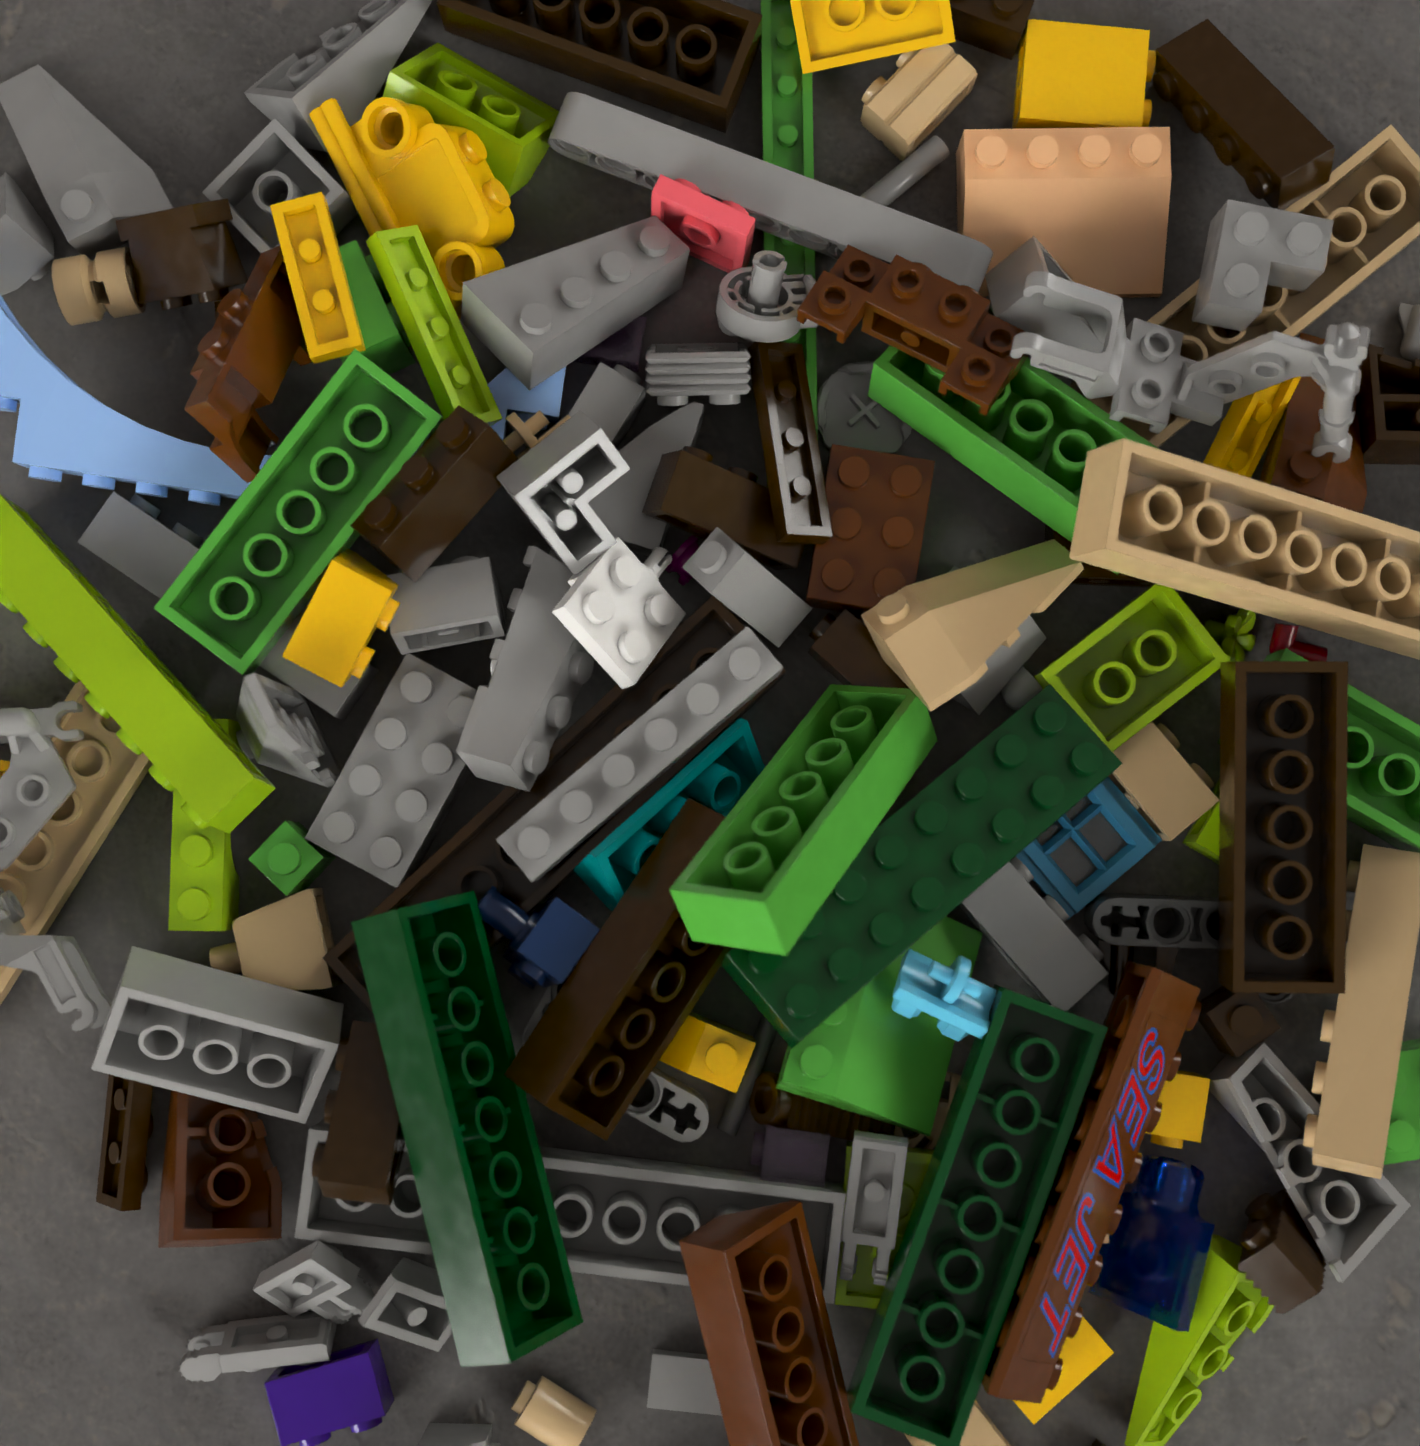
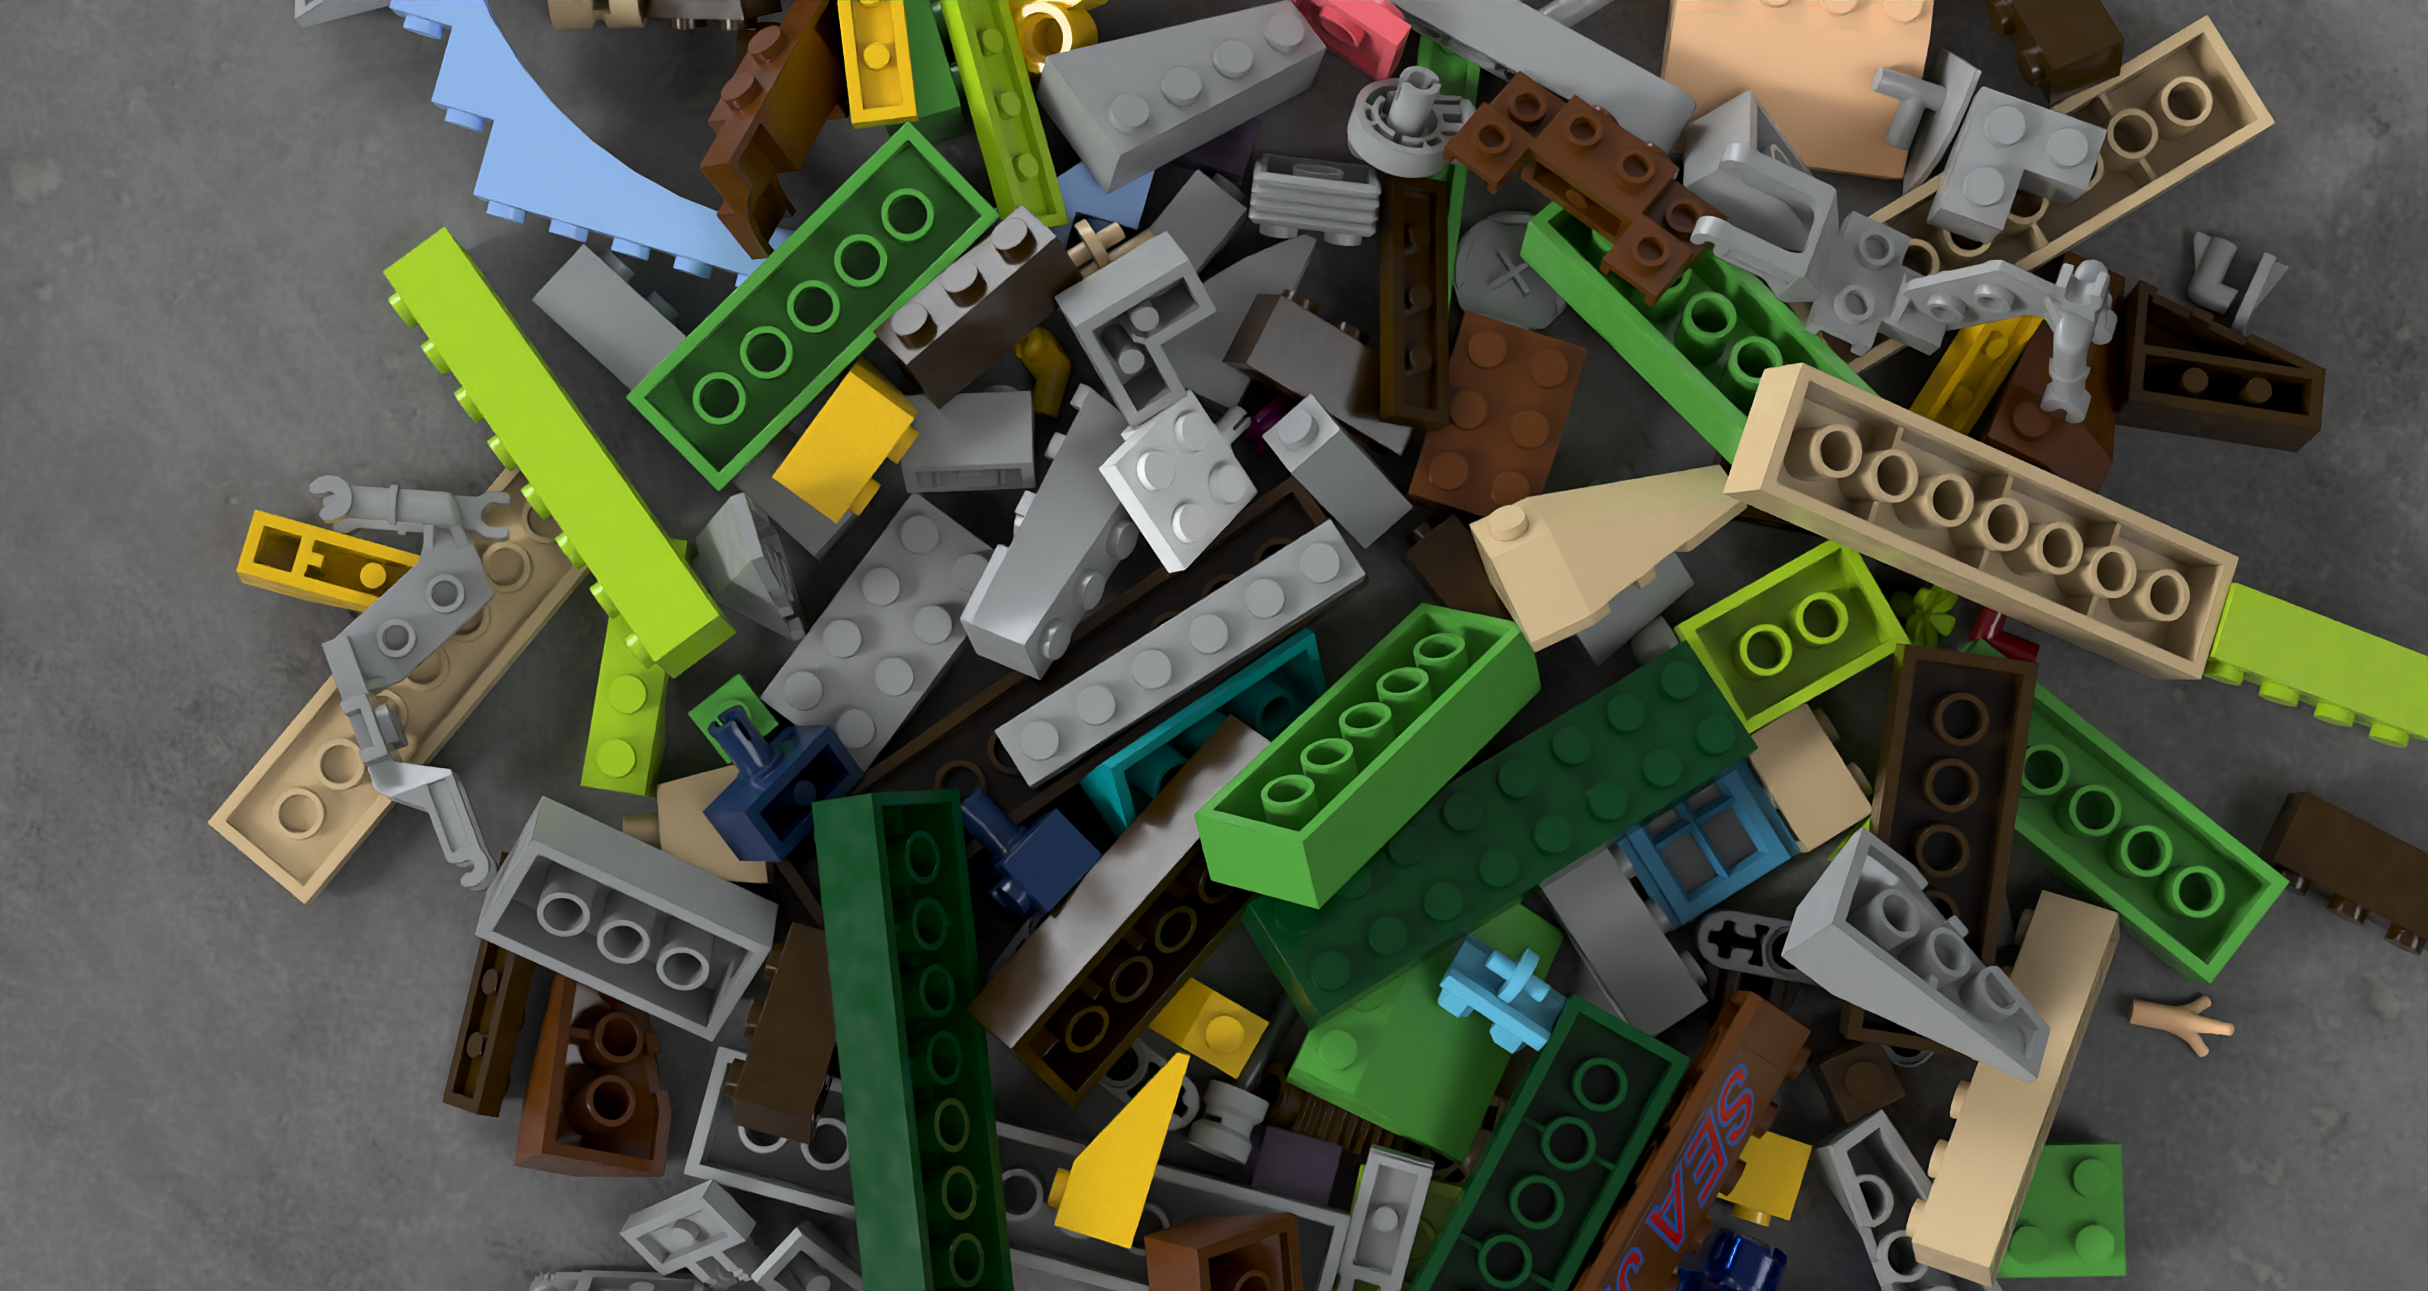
camera: 10 degrees right, 0 degrees up
(319, 927) = (771, 797): none -> dark blue brick
(503, 537) = (1048, 366): none -> yellow arm
(646, 1188) = (1115, 1170): none -> yellow slope
(733, 1128) = (1227, 1122): none -> light grey wheel
(1178, 233) = (1927, 111): none -> light grey shield
(1262, 918) = (1890, 951): none -> light grey wedge

